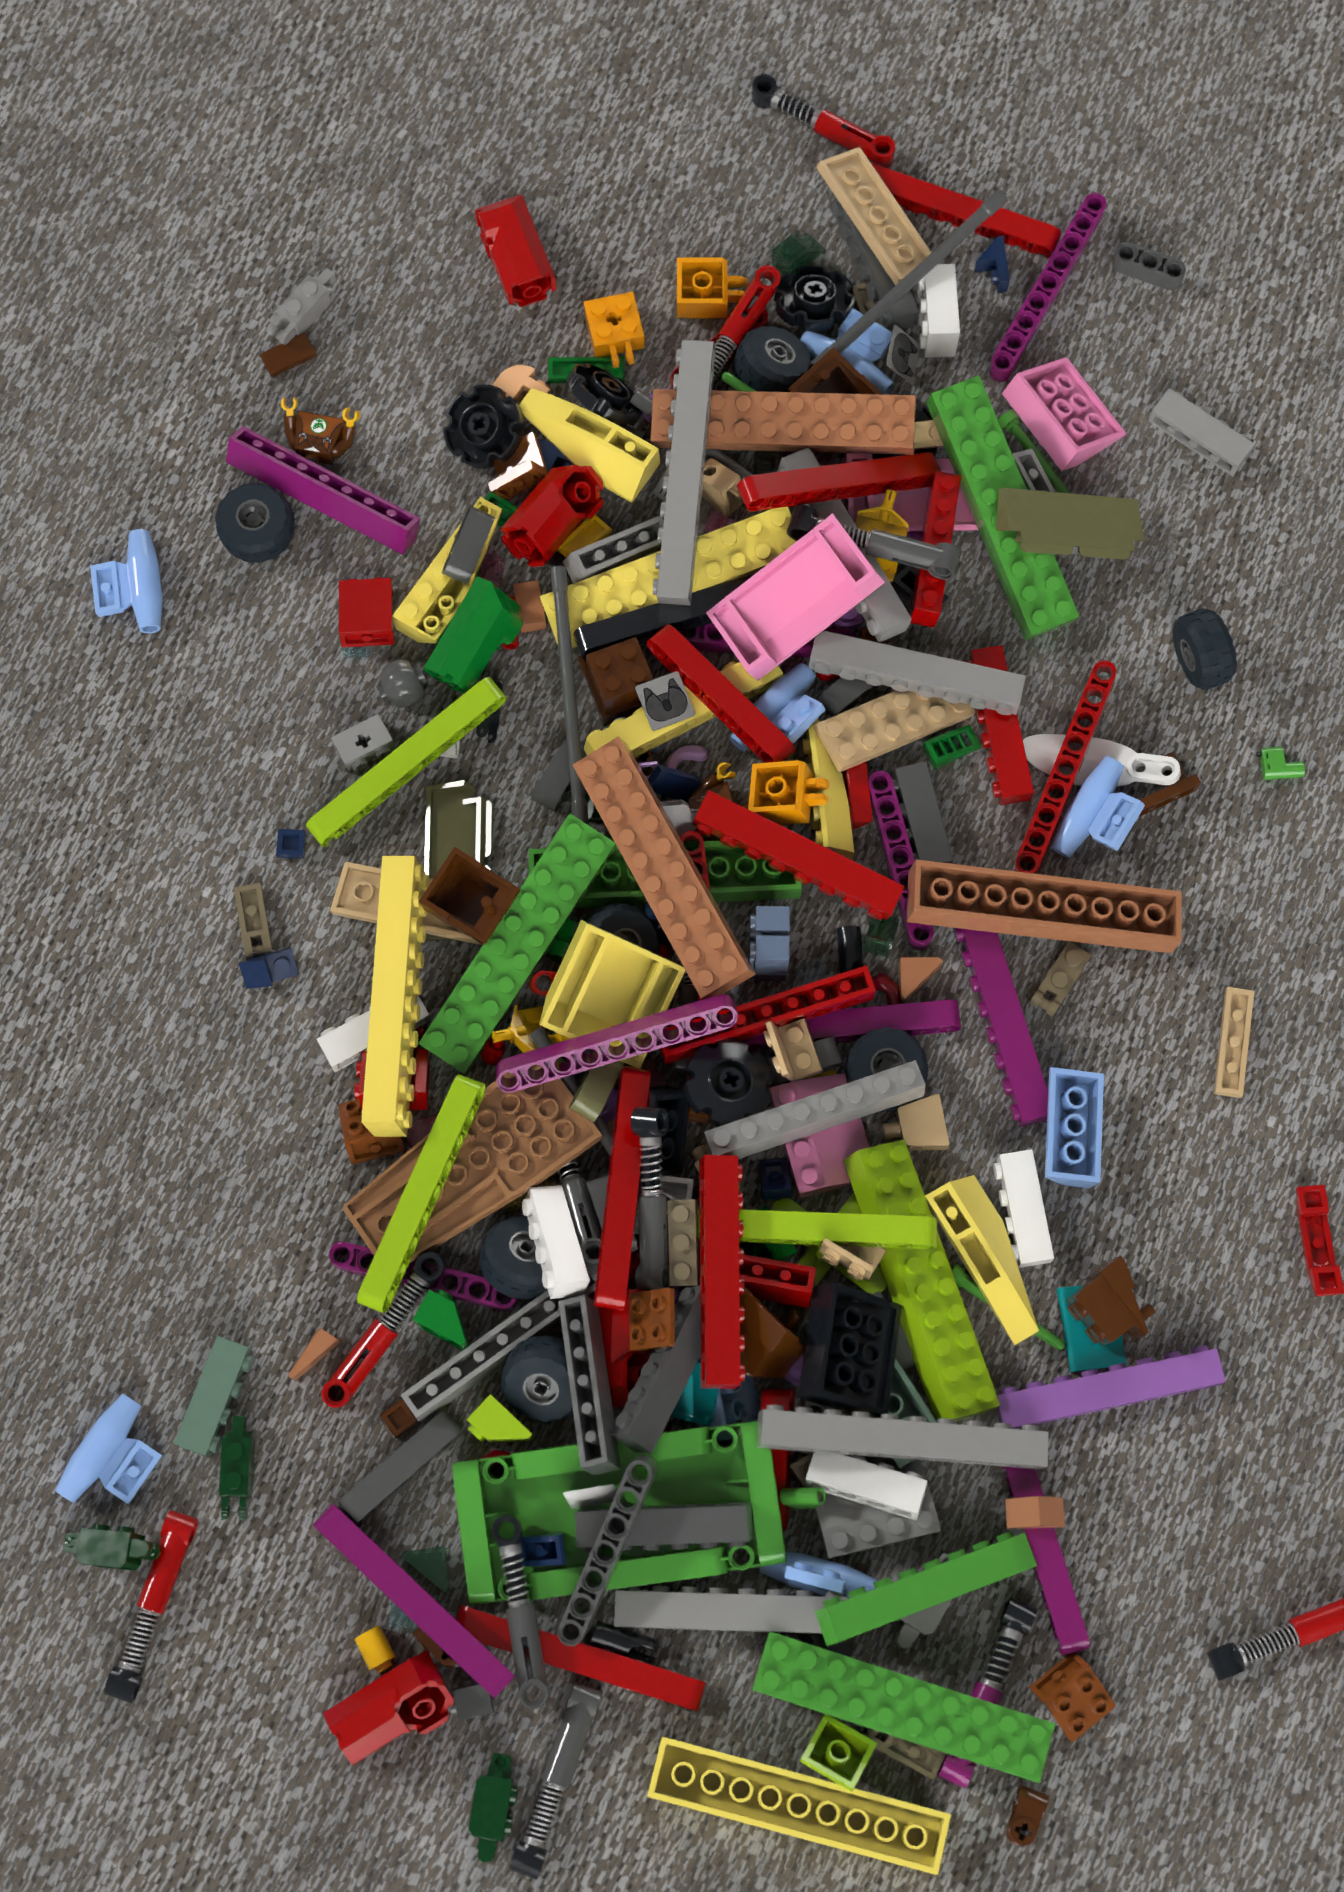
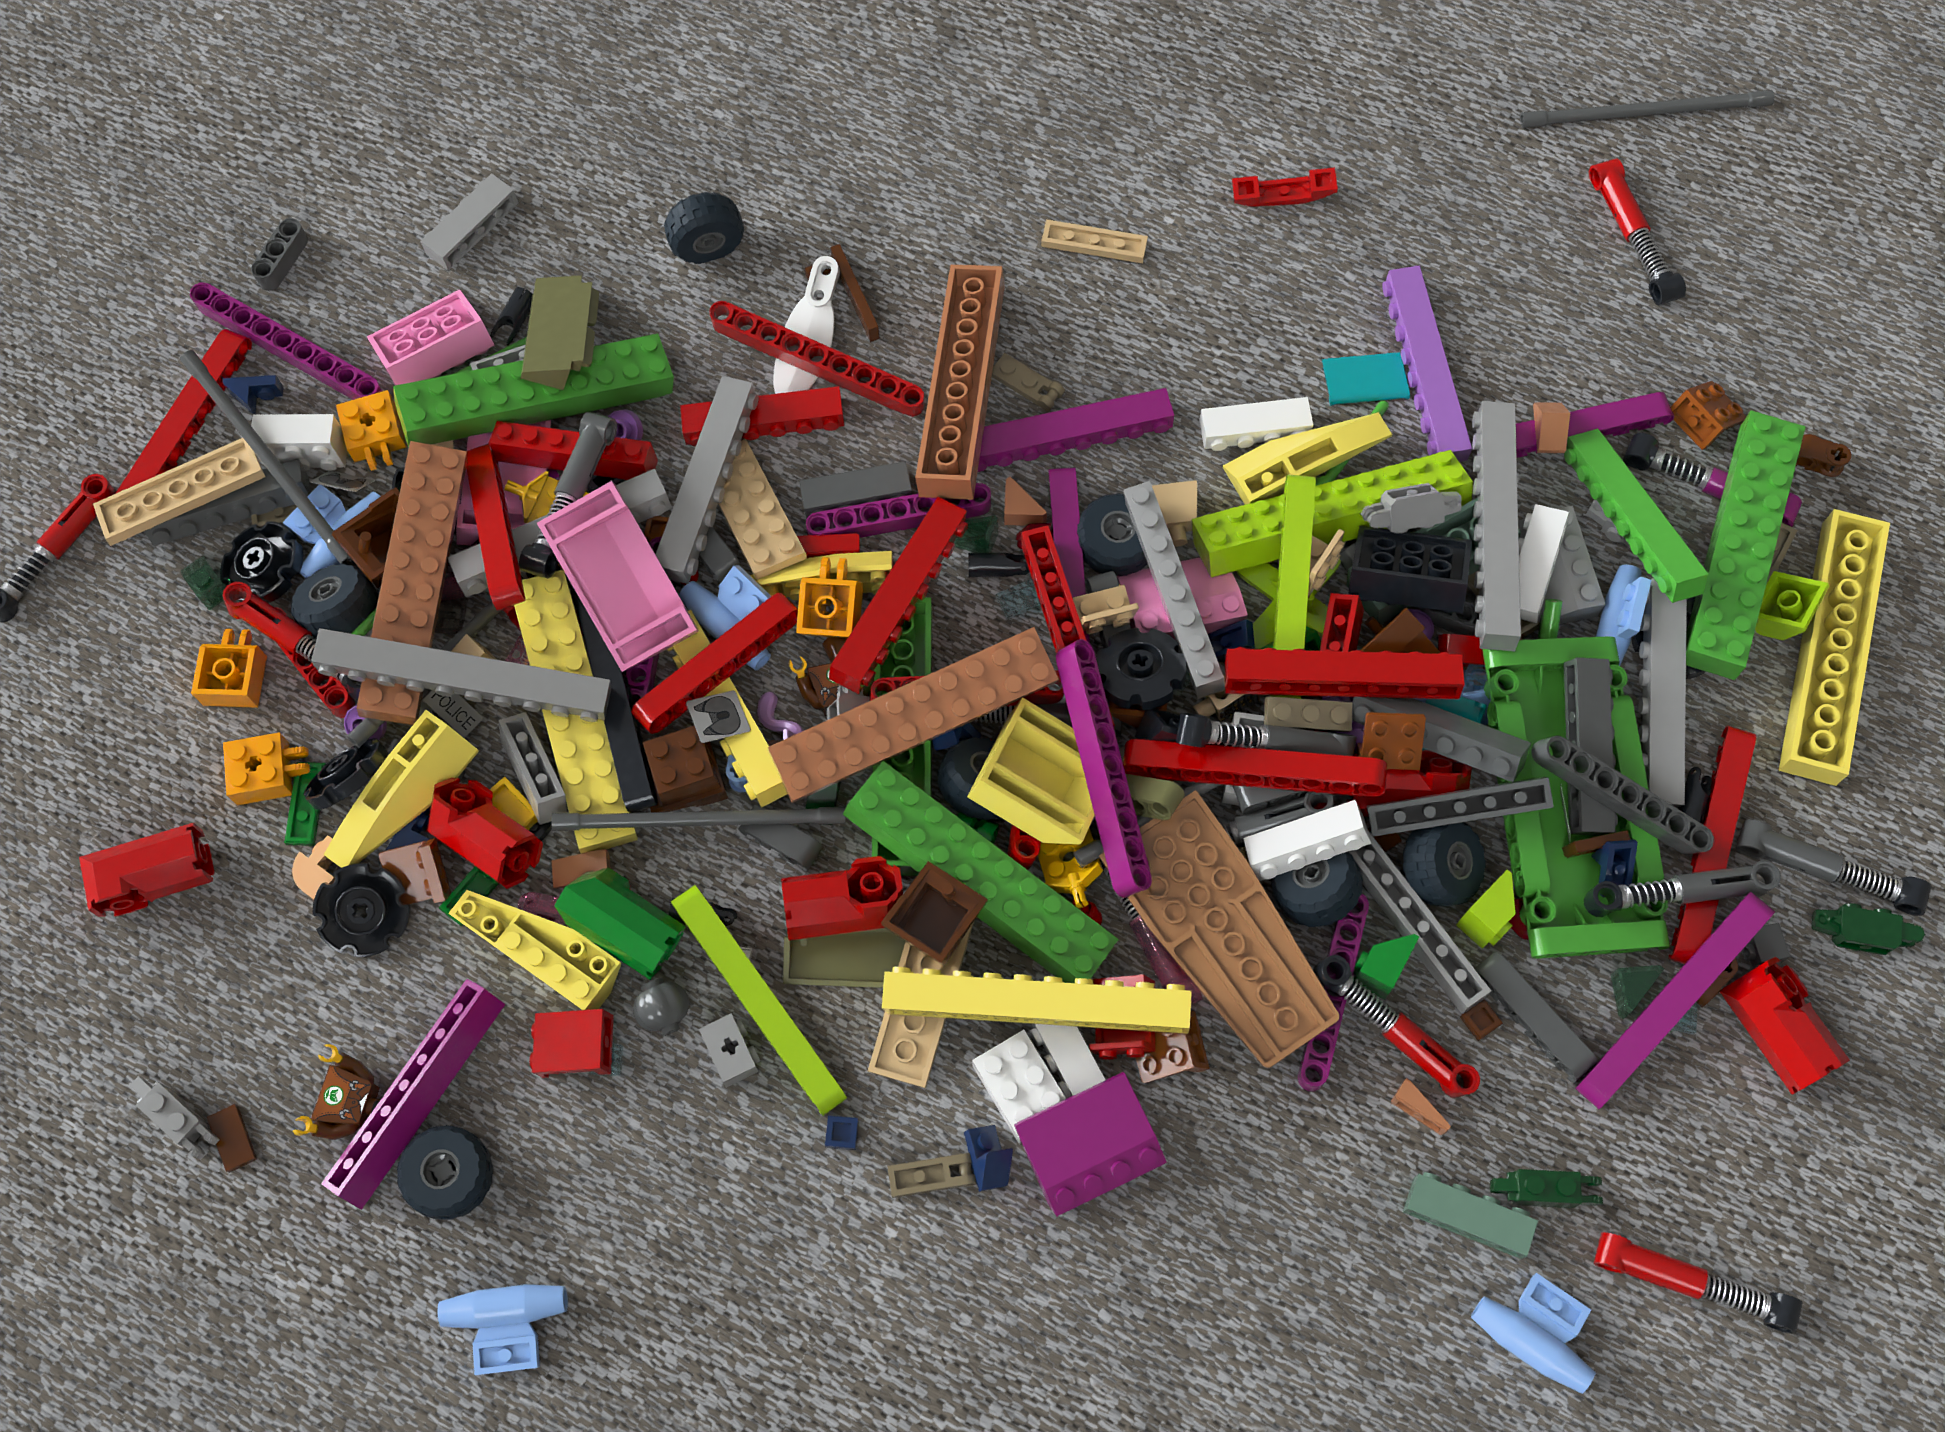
camera: 85 degrees left, 5 degrees down
(109, 1548) = (1643, 1327): dark green hinge -> none
(274, 1052) = (1089, 1144): none -> magenta slope
(329, 993) = (1017, 1079): none -> white brick
(375, 1649) = (1722, 1044): yellow brick -> none
(421, 1194) = (1258, 976): lime beam -> none
(468, 545) = (511, 920): dark grey beam -> none
(493, 820) = (841, 899): none -> red brick
(568, 1530) = (1592, 844): none -> reddish brown tile
(673, 783) = (803, 716): dark blue tile -> none
(769, 943) = (979, 635): sand blue piece -> none
(916, 1352) = (1411, 508): none -> light grey hinge
(938, 761) = (786, 480): green slope -> none
(959, 364) = (371, 428): none -> light orange hinge
(976, 597) = (628, 424): none -> medium lavender plate
(1074, 1127) = (1181, 367): light blue slope -> none
(1098, 812) = (864, 330): light blue plate -> none
(1100, 484) = (514, 312): none -> black piece
(1108, 1304) = (1351, 350): reddish brown piece -> none
(1274, 765) = (822, 188): bright green piece -> none

